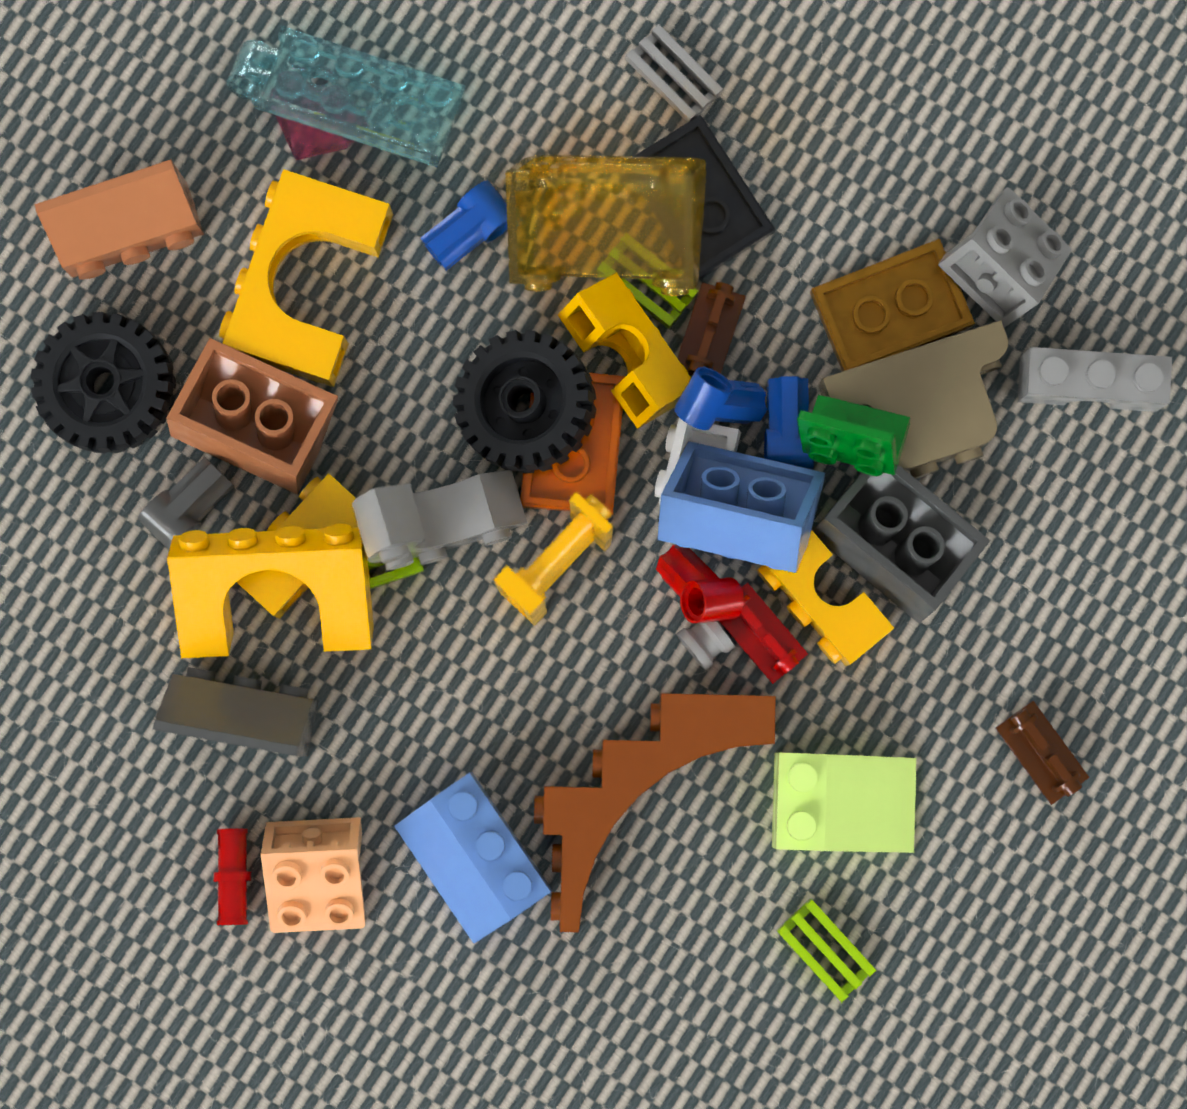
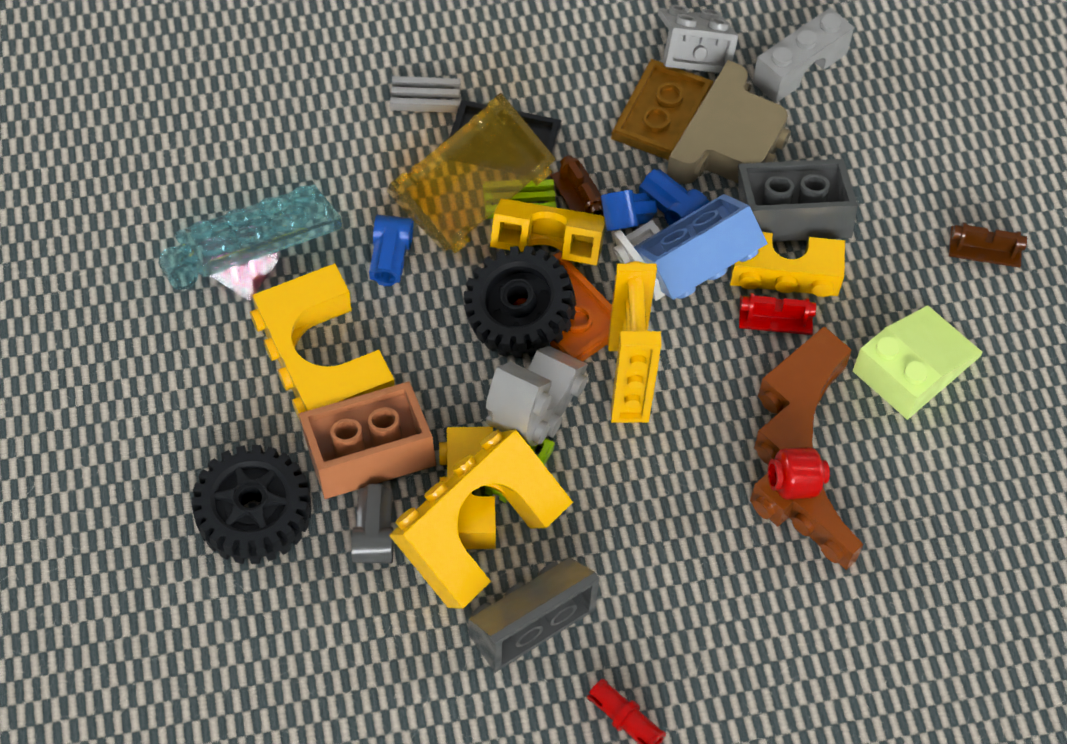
camera: 45 degrees left, 25 degrees down
(120, 220) = (175, 400): nougat slope -> none
(313, 874) = (677, 667): light nougat bracket -> none
(473, 857) = (756, 567): medium blue slope -> none
(579, 821) = (798, 473): none -> red head
(701, 592) = (719, 309): red piece -> none
(705, 642) = (752, 339): light grey wheel -> none
(853, 435) = (720, 158): green bracket -> none
(853, 980) = (999, 436): lime tile -> none

